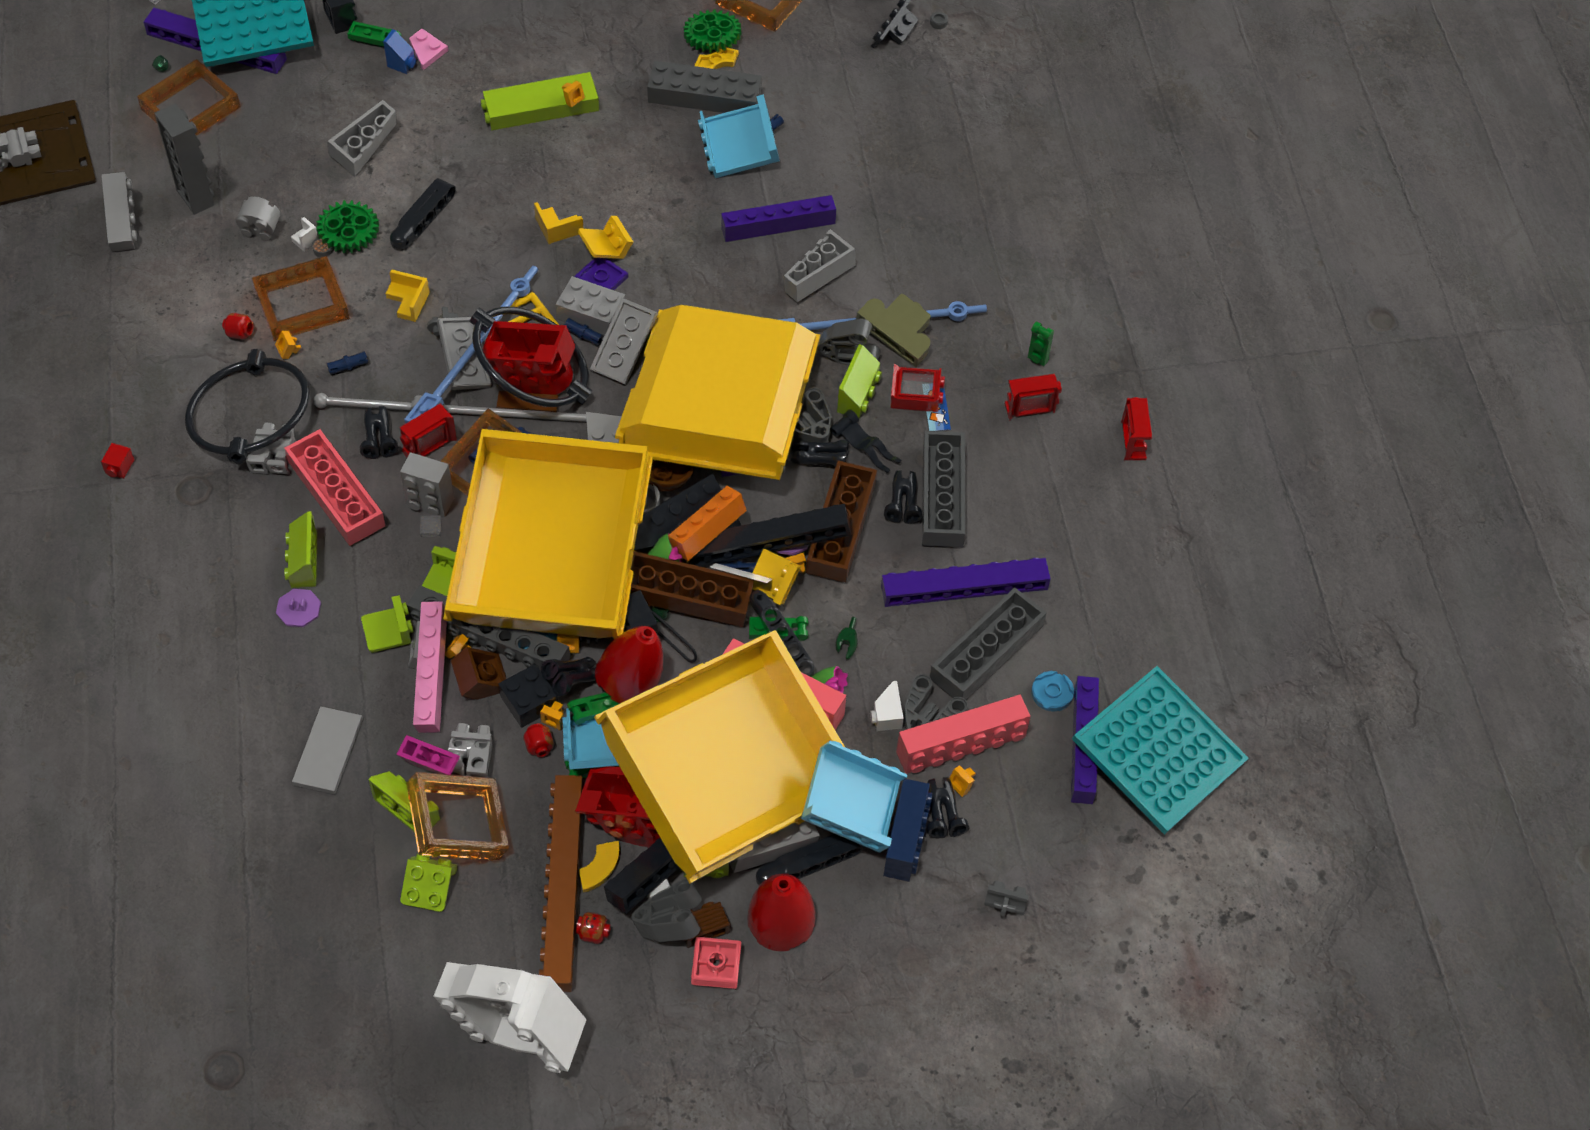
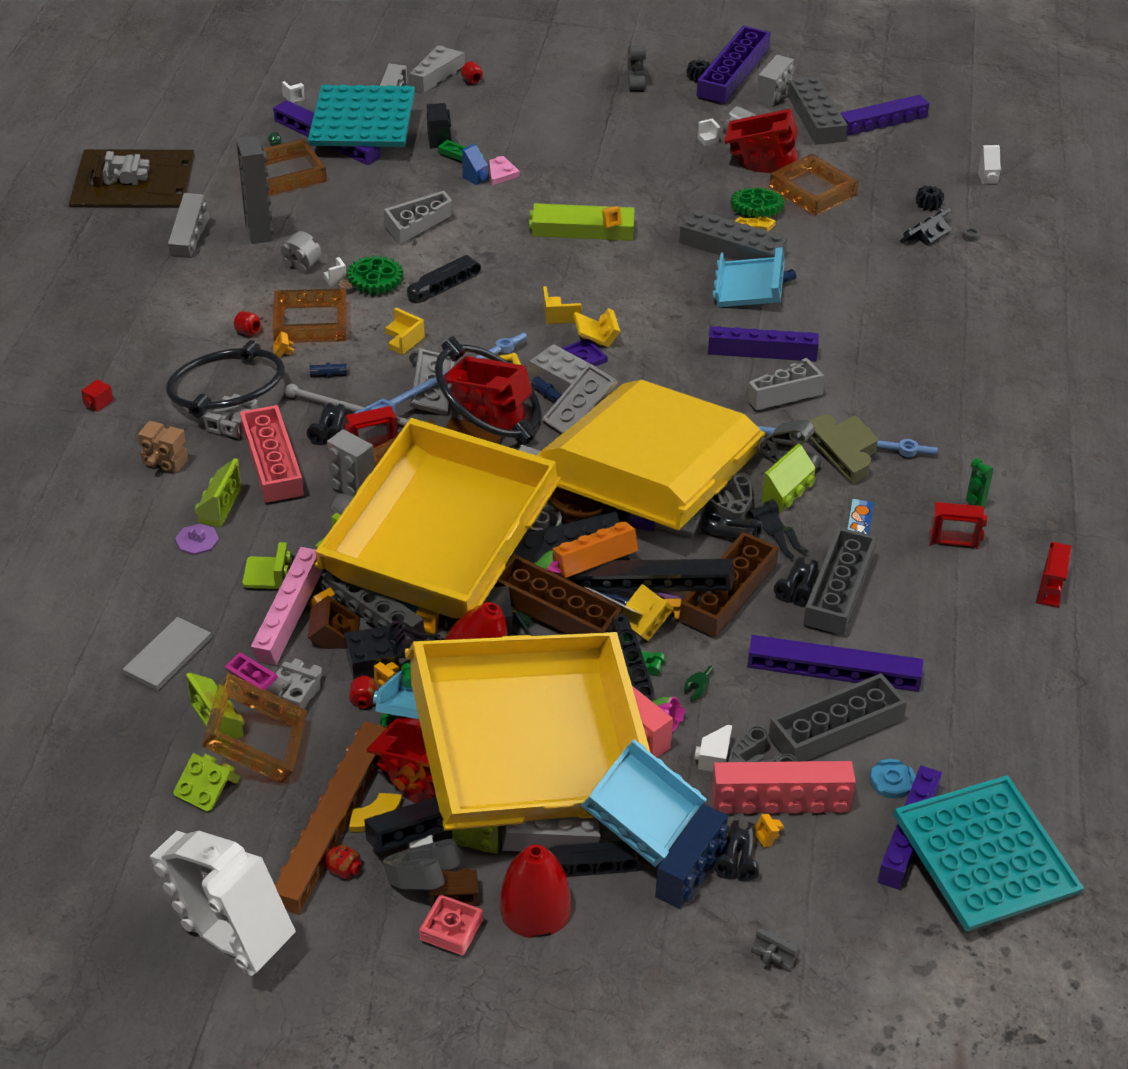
camera: 20 degrees right, 15 degrees down
(220, 511) = (163, 447): none -> medium nougat brick
(916, 389) = (844, 498): red window -> none

